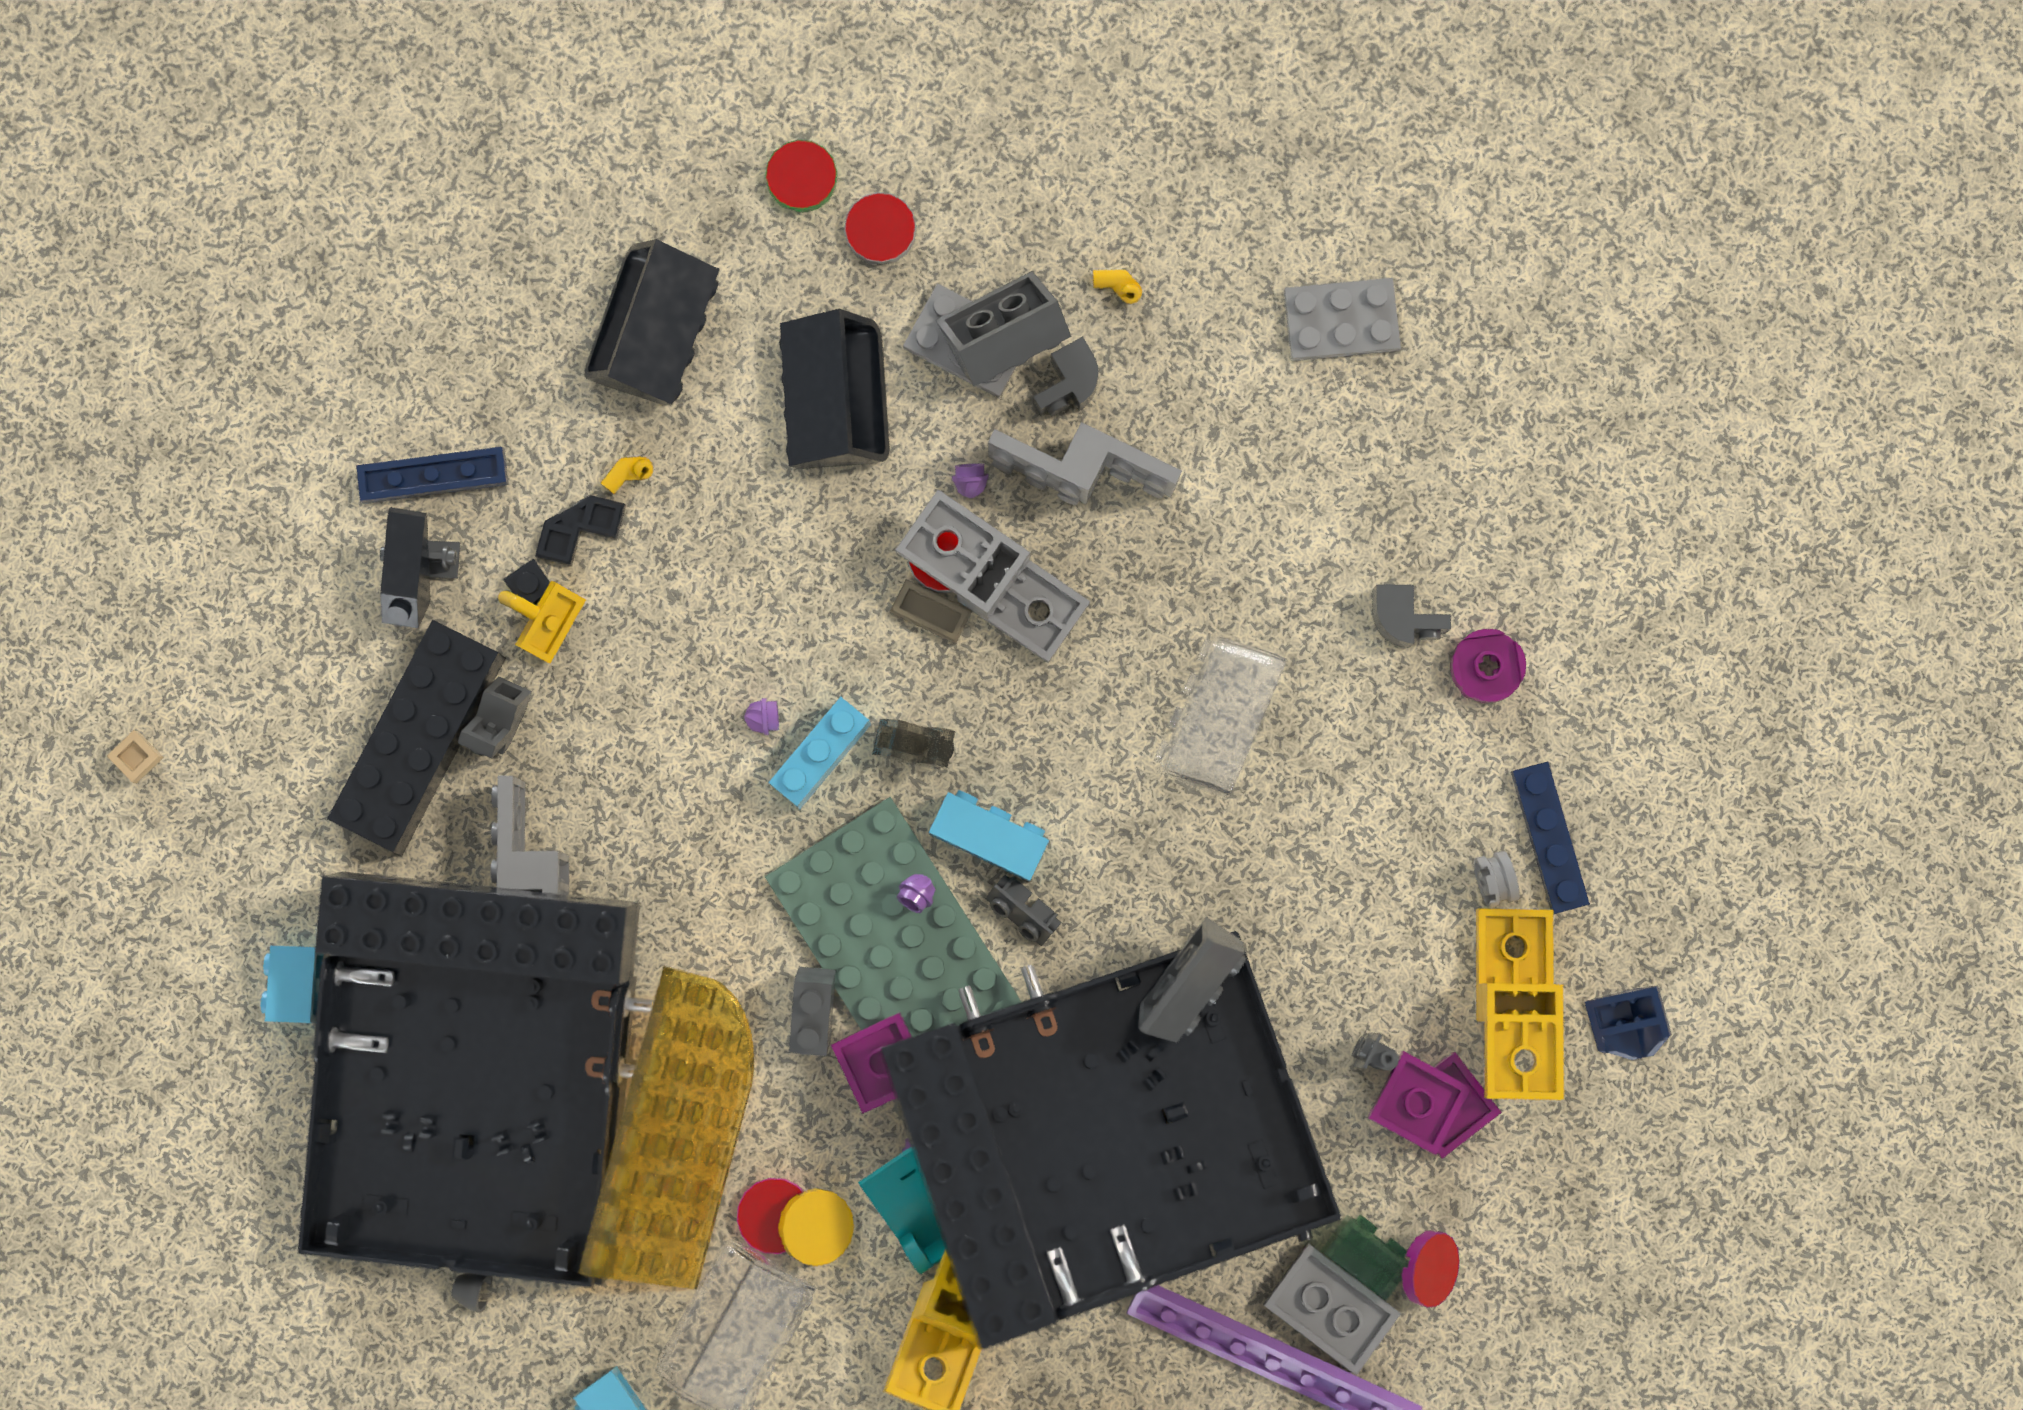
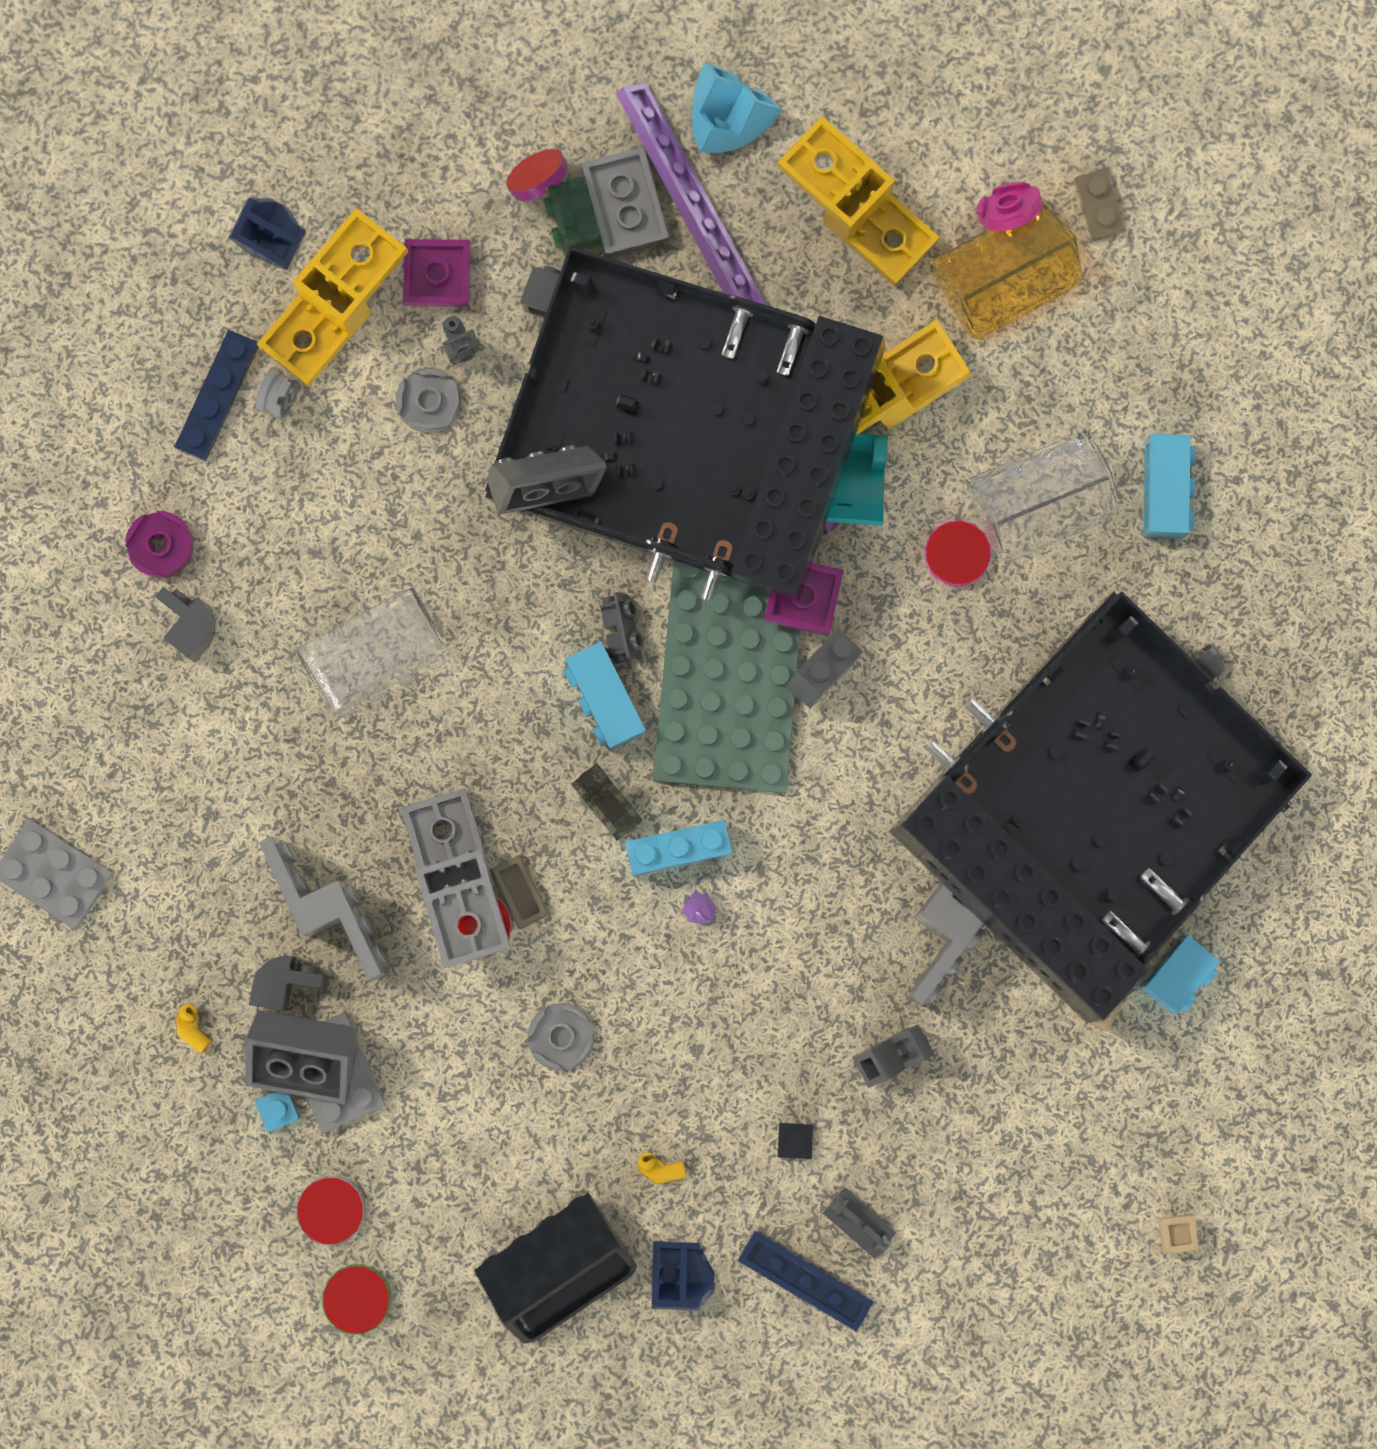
camera: 140 degrees left, 0 degrees up
(405, 569) = (877, 1217): black slope -> none
(416, 738) = (961, 1087): black brick -> none
(541, 397) = (680, 1276): none -> dark blue slope
(547, 621) = (802, 1100): yellow plate -> none
(563, 530) = (739, 1163): black tile -> none
(674, 1137) = (986, 651): clear yellow plate -> none
(798, 530) = (571, 1032): none -> light grey tile
(816, 1227) = (934, 521): yellow tile -> none
(834, 390) = (462, 1109): black windscreen -> none
(916, 893) = (687, 693): medium lavender plate -> none
(970, 479) = (414, 966): medium lavender plate -> none
(990, 272) = (277, 1110): none -> medium azure plate
(1339, 1162) = (539, 290): none -> dark grey brick
(1349, 976) = (427, 411): none -> light grey tile
(1419, 1103) = (455, 284): magenta plate -> none

